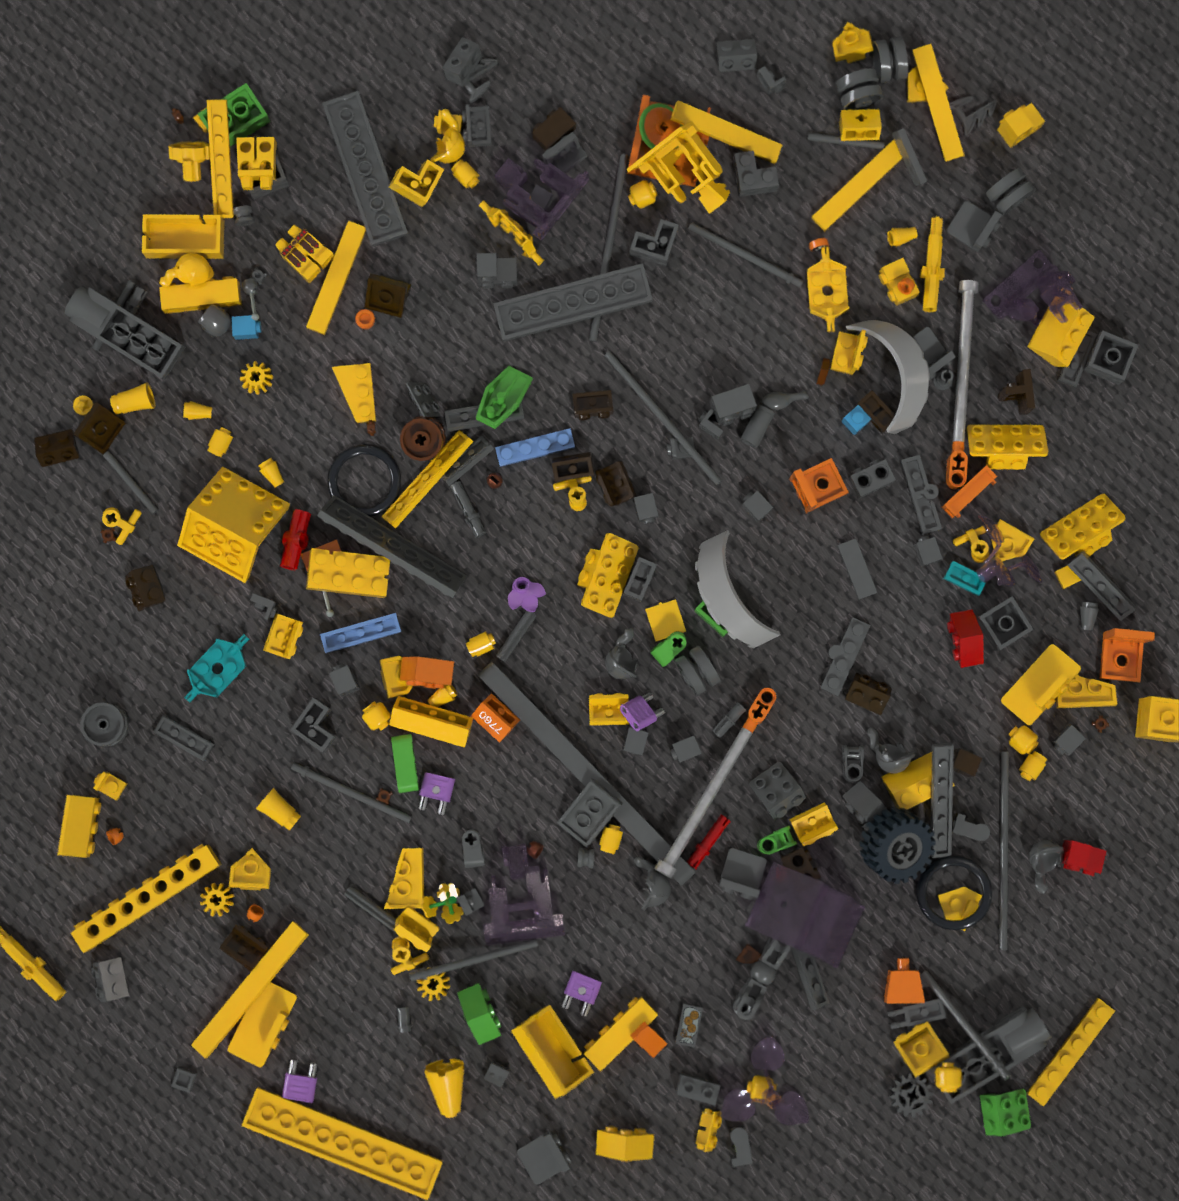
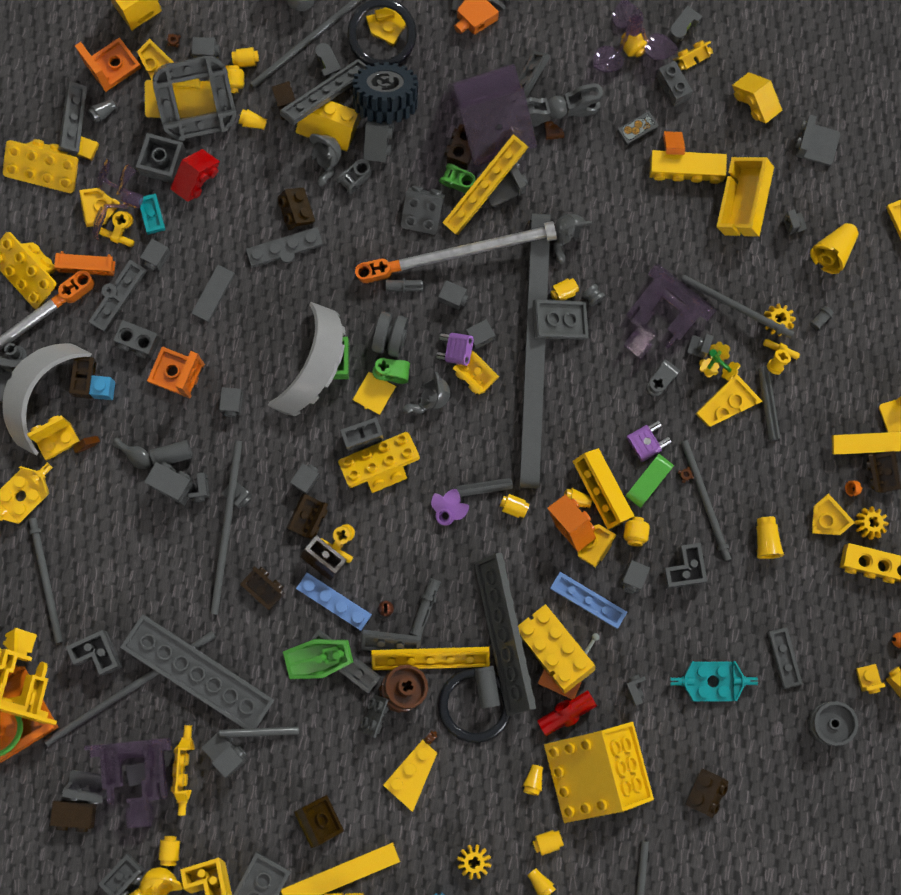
camera: 130 degrees left, 5 degrees down
(108, 535) = (695, 860): reddish brown piece -> none
(127, 526) = (676, 852): yellow piece -> none
(283, 636) = (644, 654): yellow bracket -> none
(365, 319) = (352, 822): orange tile -> none
(367, 498) = (487, 687): none -> dark grey pin
(416, 928) = (755, 364): yellow bracket -> none
(479, 1014) = (770, 266): bright green brick -> none
(489, 309) = (258, 732): none -> dark grey bar
(495, 717) = (557, 445): orange brick -> none
(535, 849) = (621, 335): copper hinge -> none
(582, 988) = (683, 219): medium lavender piece -> none
(642, 194) = (65, 699): yellow head -> none
(709, 840) = (502, 224): red pin -> none
(749, 855) = (485, 184): none -> yellow plate
(813, 824) = (423, 164): yellow bracket -> none
(974, 724) = (252, 120): none -> yellow cone
(1054, 703) = (188, 70): none -> dark grey plate

